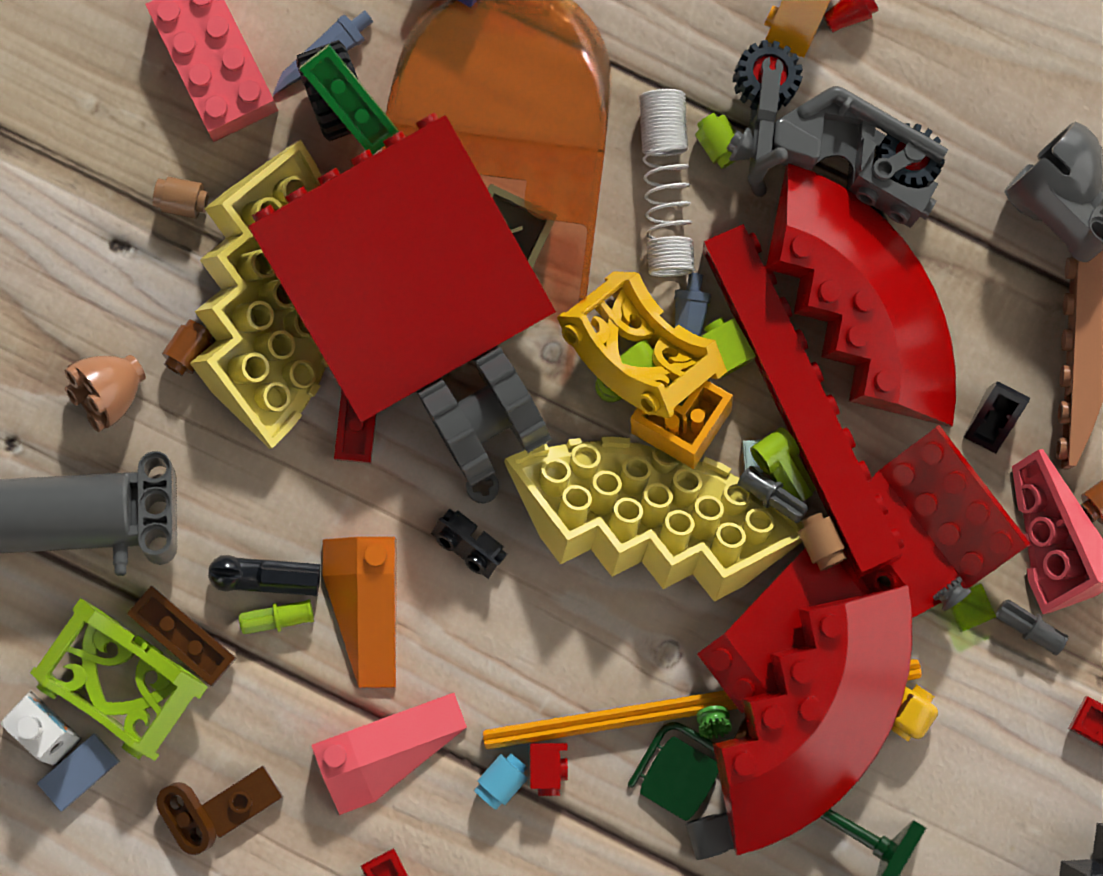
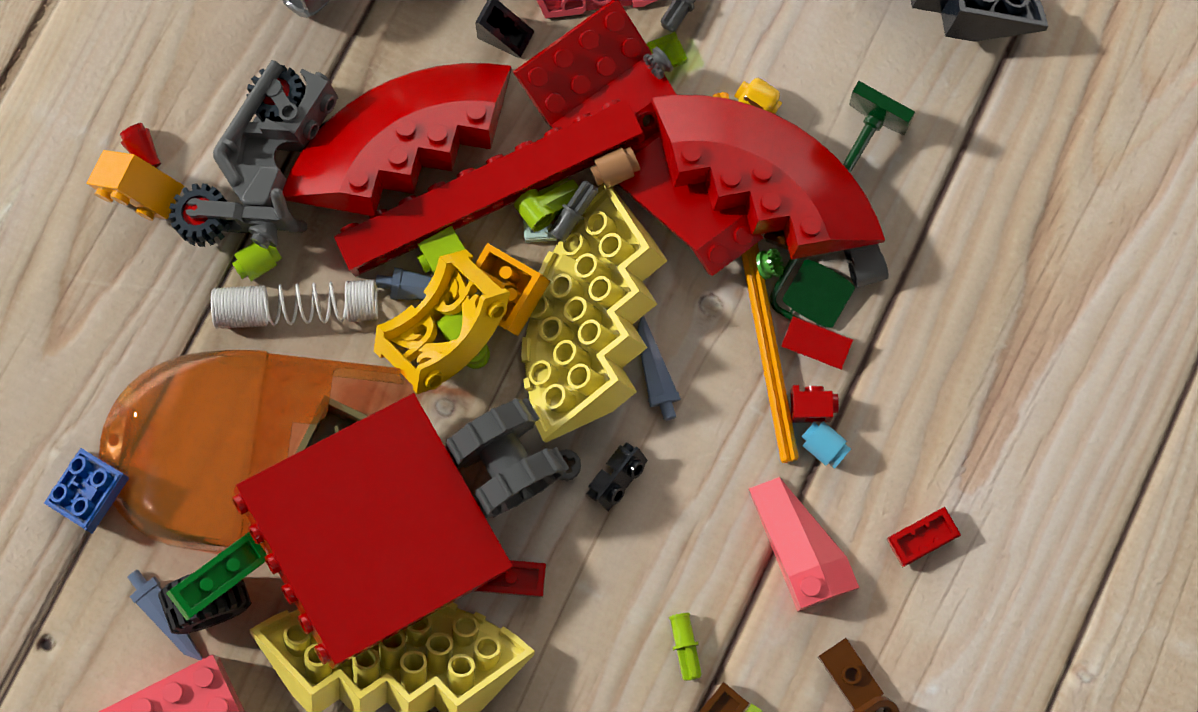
camera: 85 degrees left, 5 degrees down
(269, 576) = (649, 657): black piece -> none
(363, 594) = (666, 568): orange wedge -> none
(580, 591) = (658, 380): none -> sand blue bar
(621, 774) = (817, 342): none -> red tile

